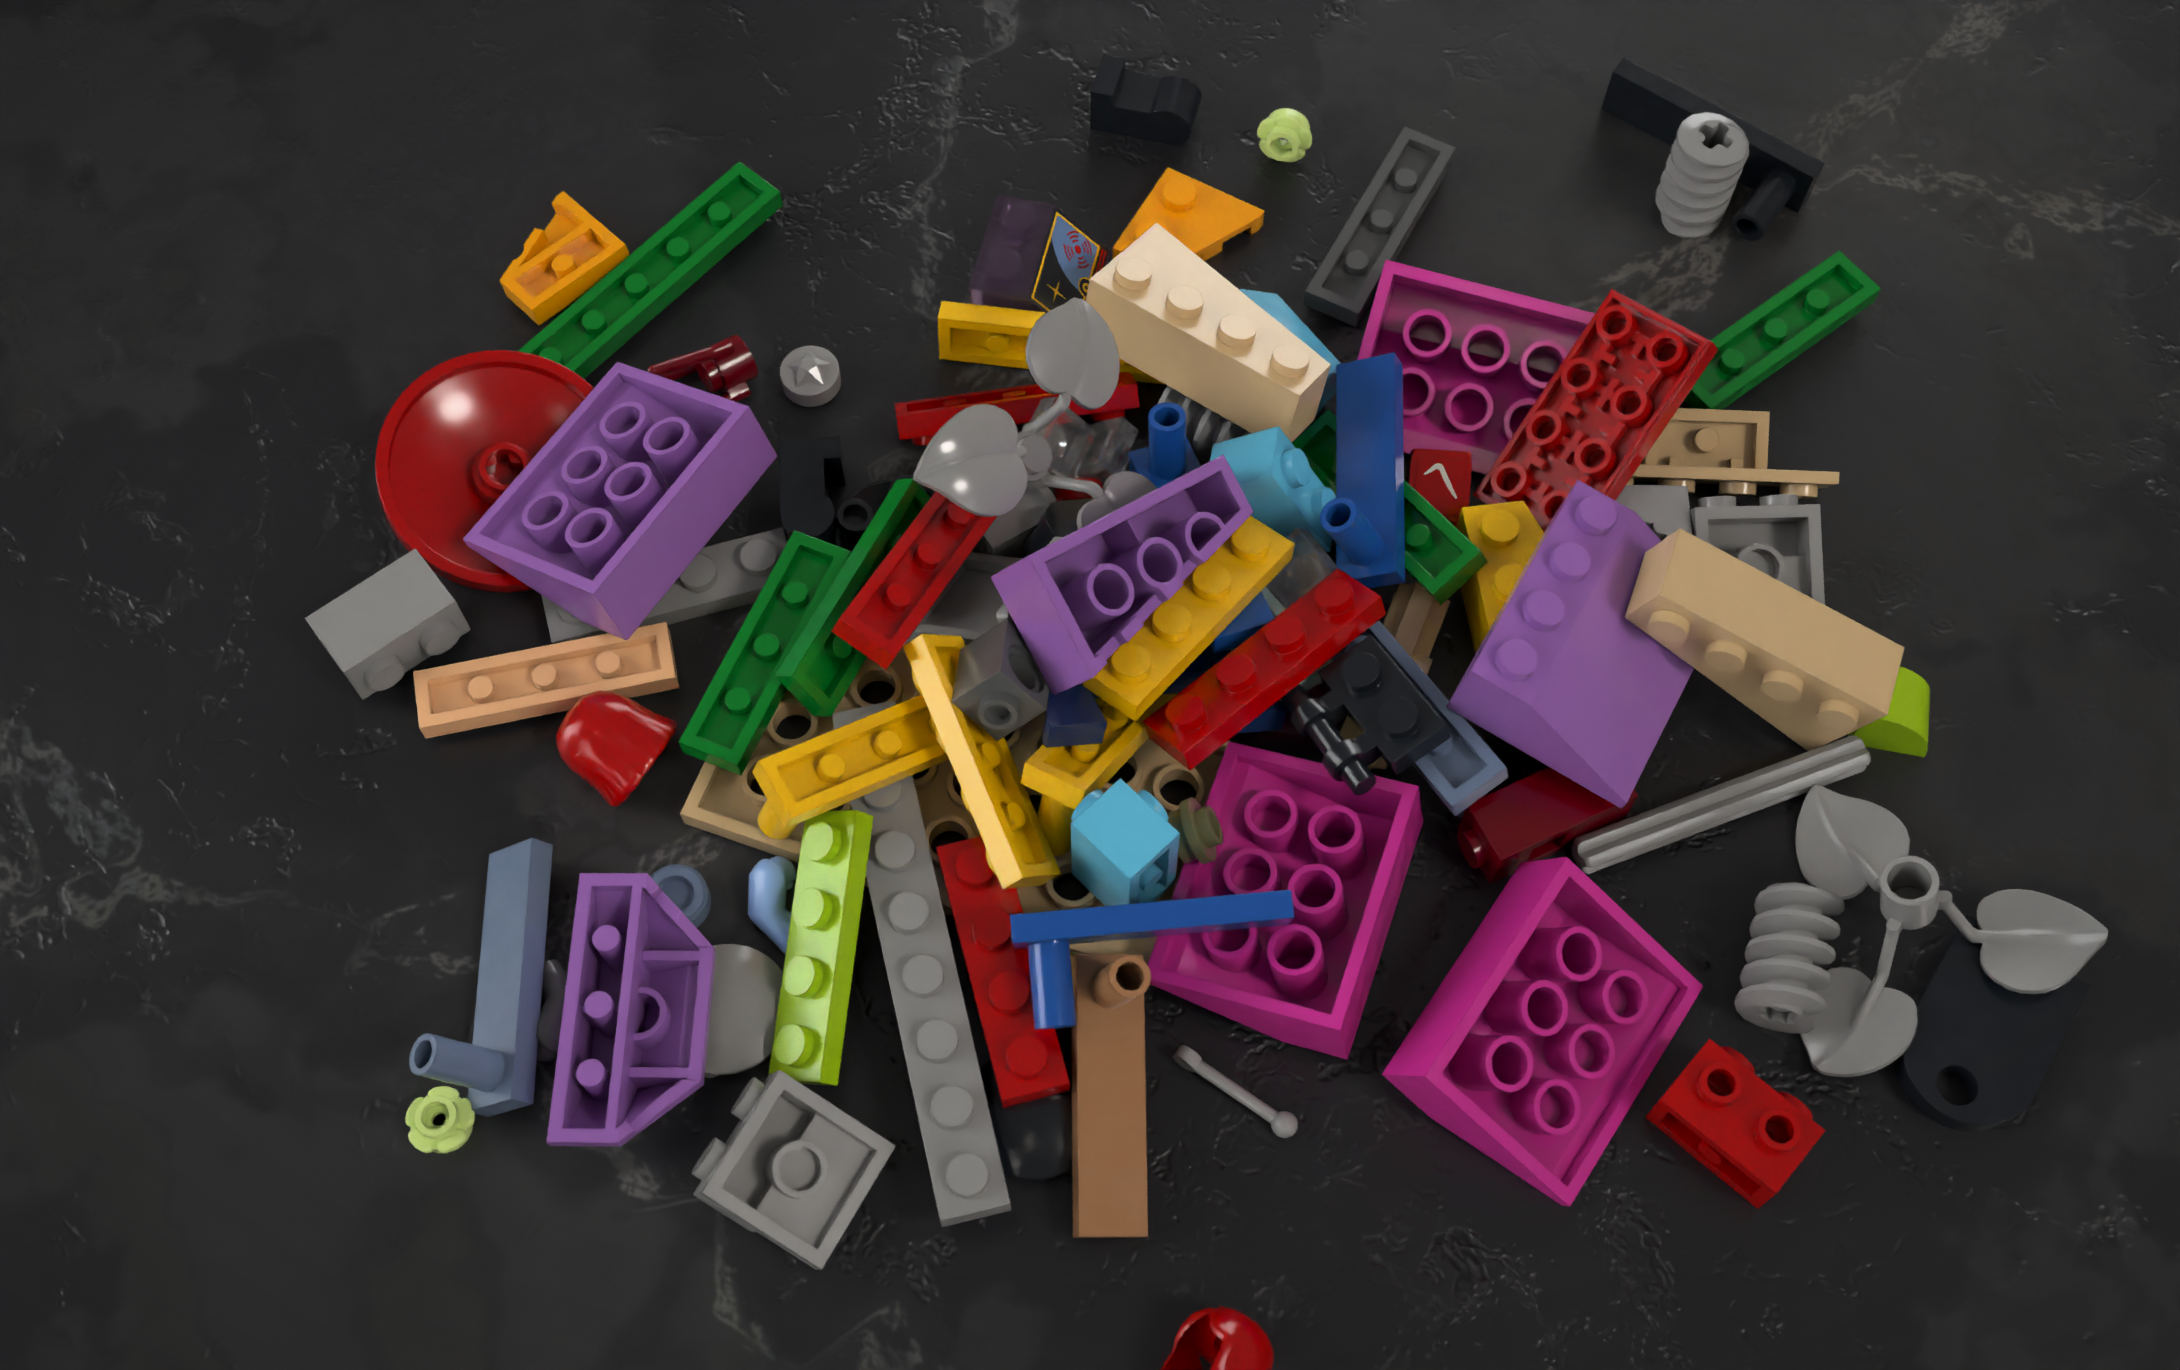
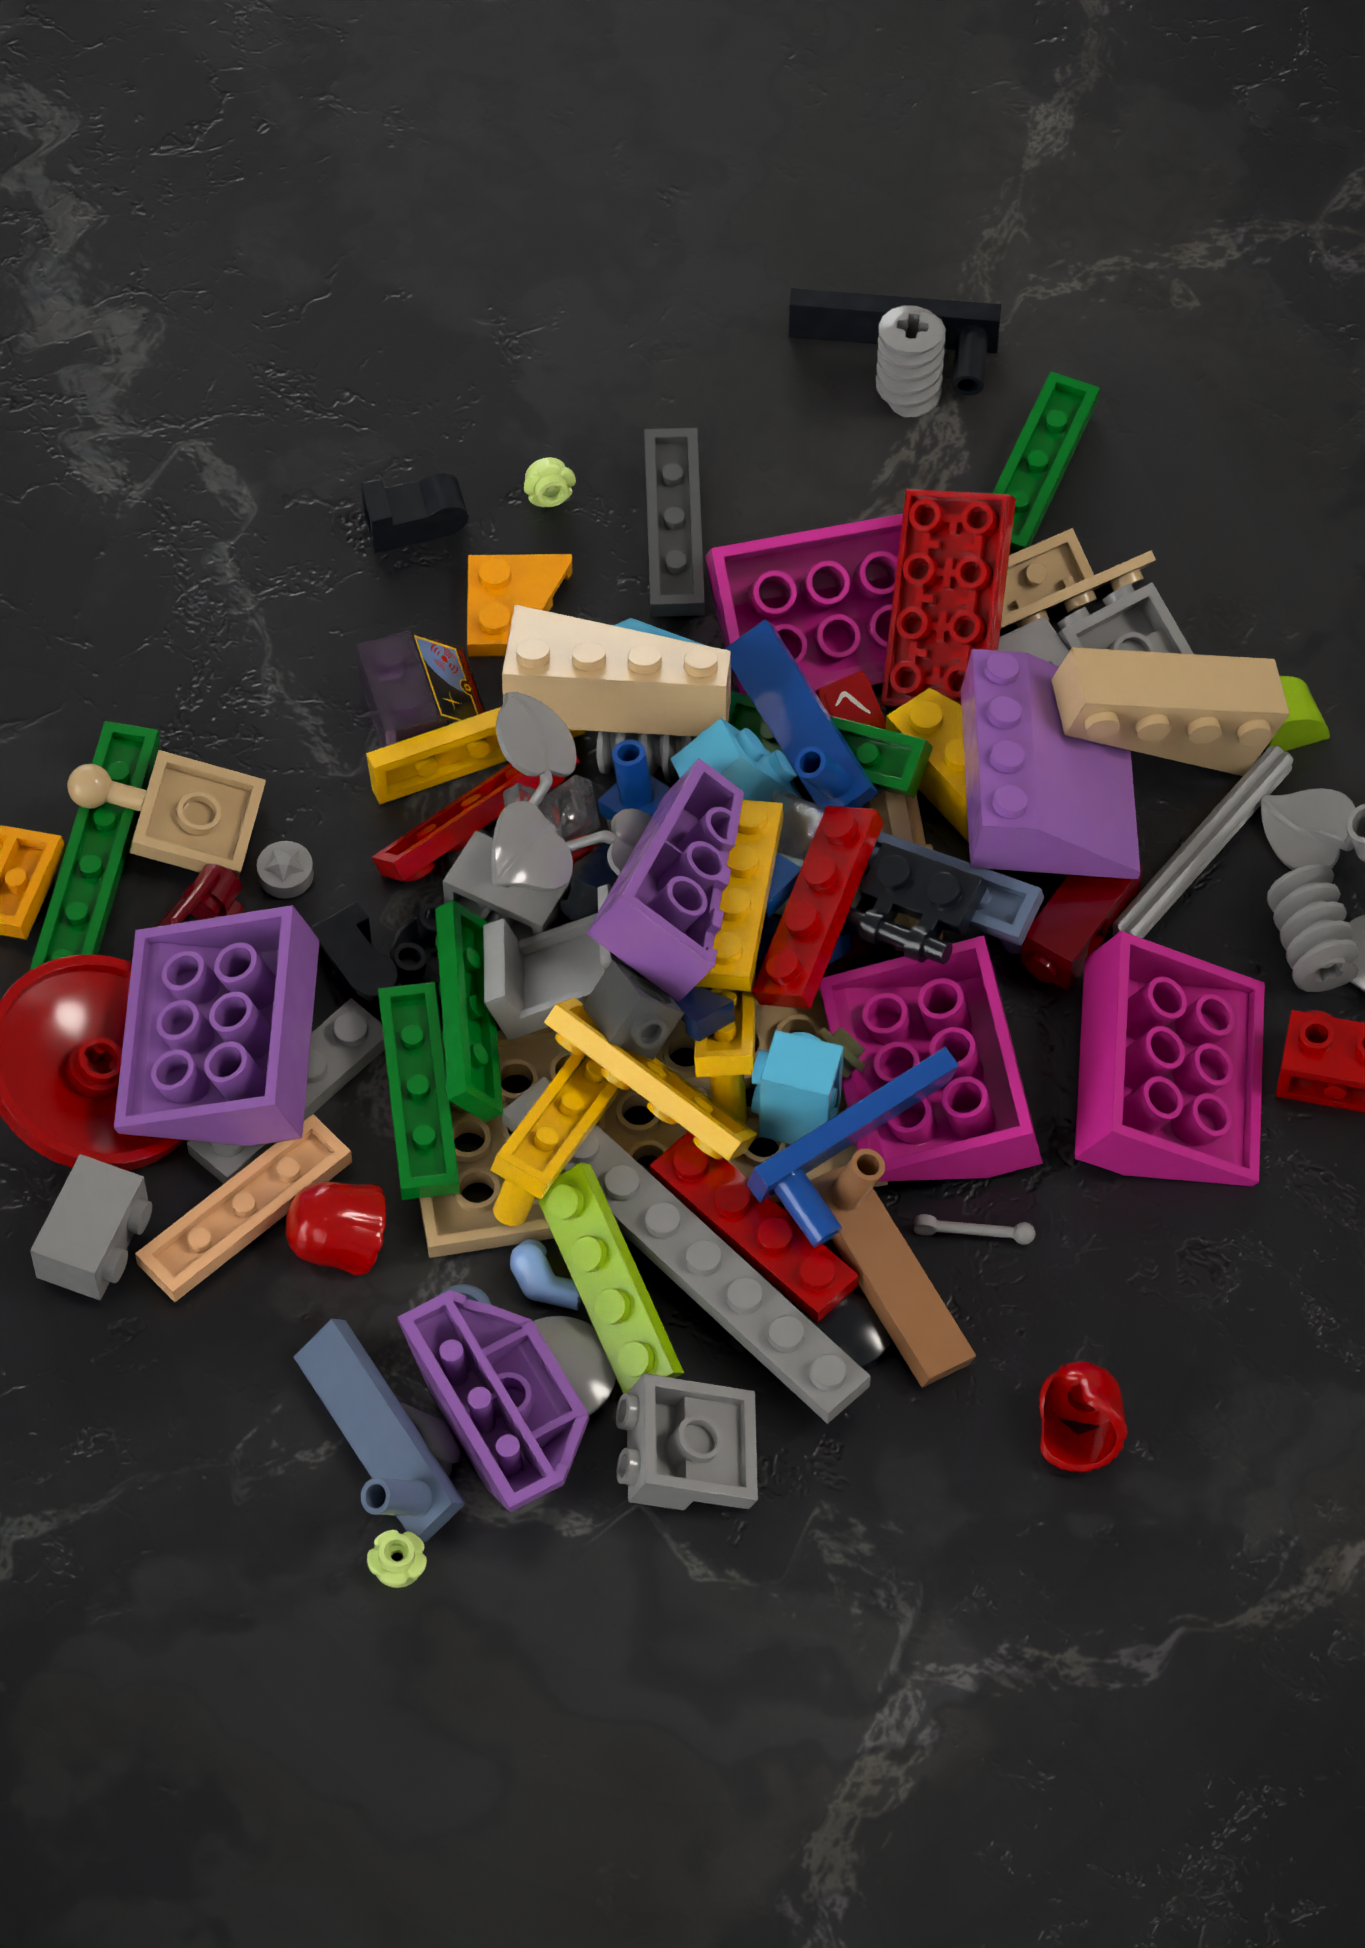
camera: 30 degrees left, 5 degrees down
(752, 280) = (186, 814): none -> tan plate
(910, 579) = (510, 961): red plate -> none

